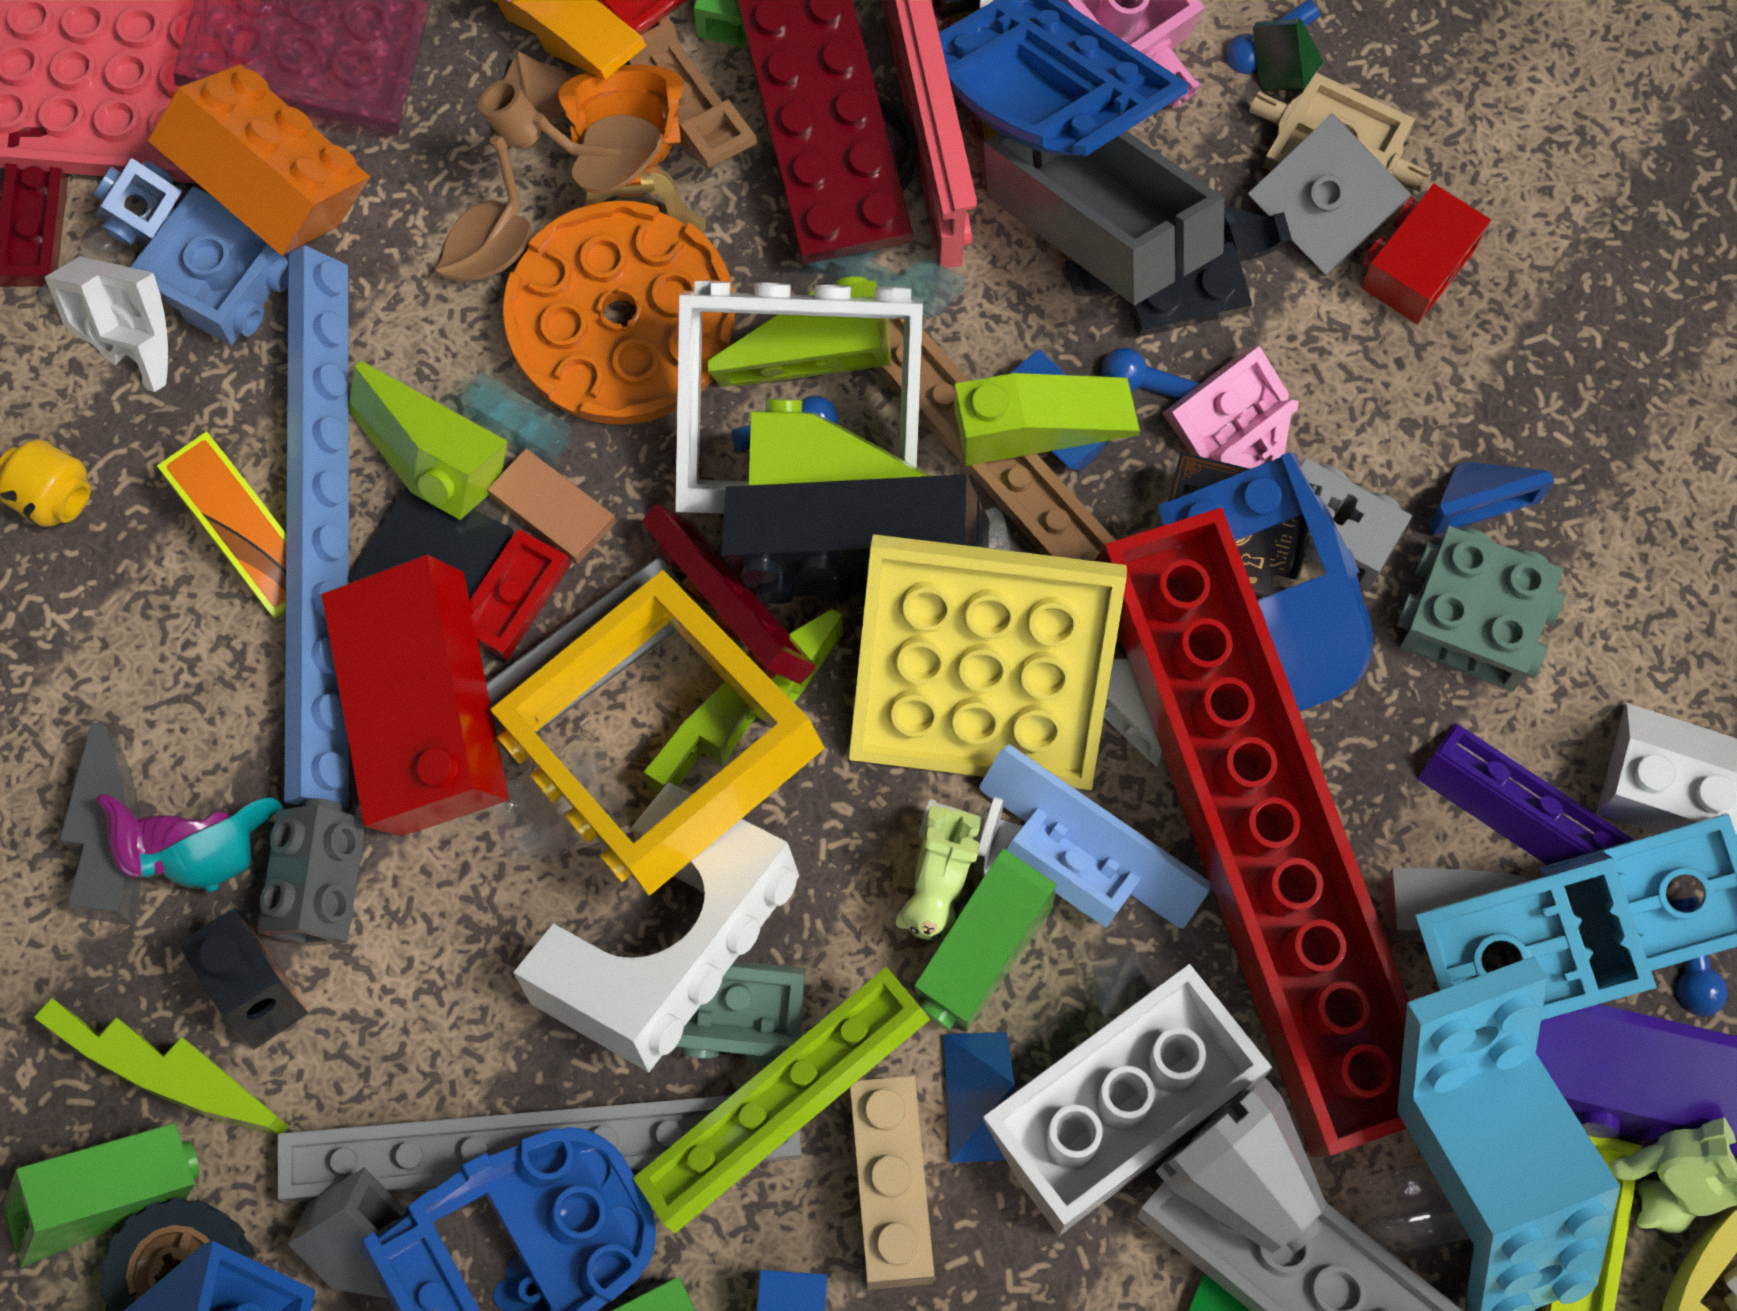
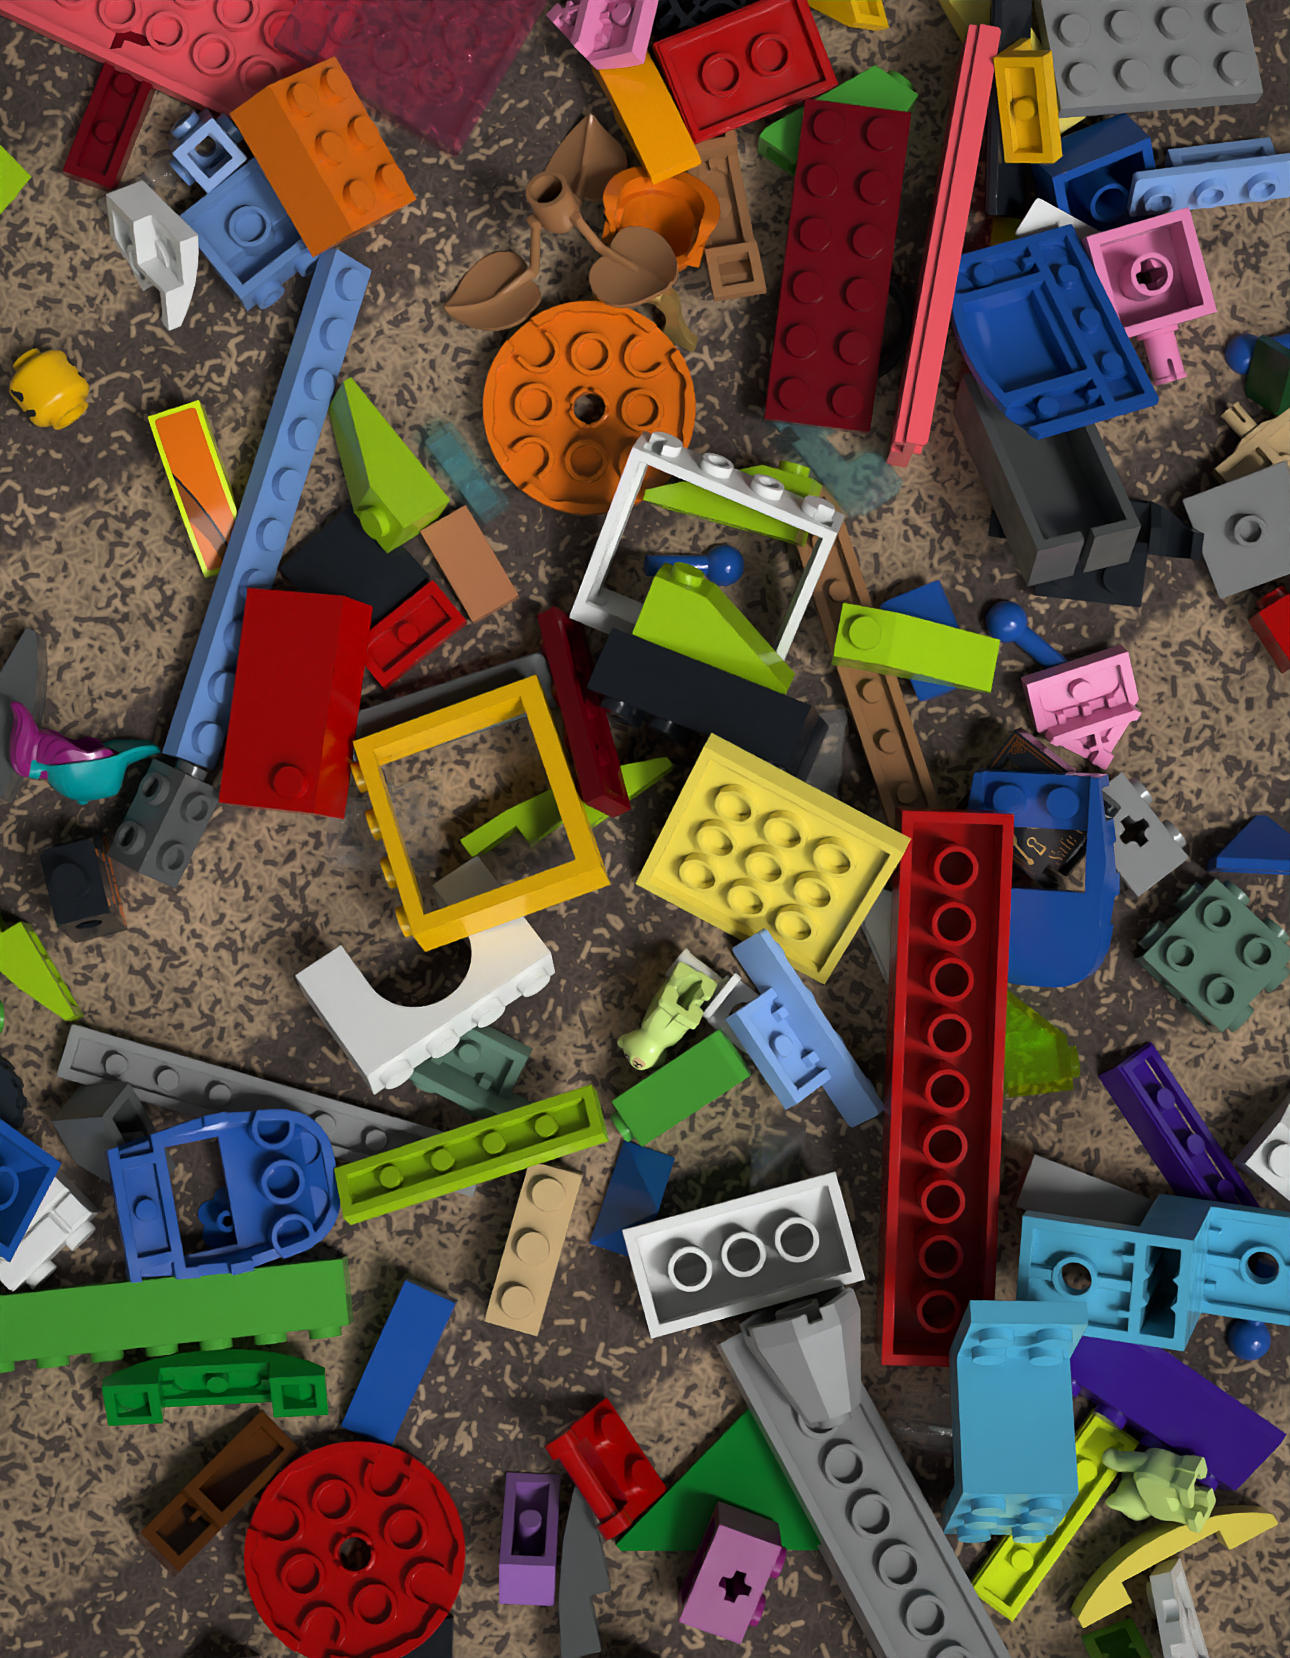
camera: 20 degrees right, 15 degrees up
(1356, 772) = (1035, 1053): none -> clear neon green slope

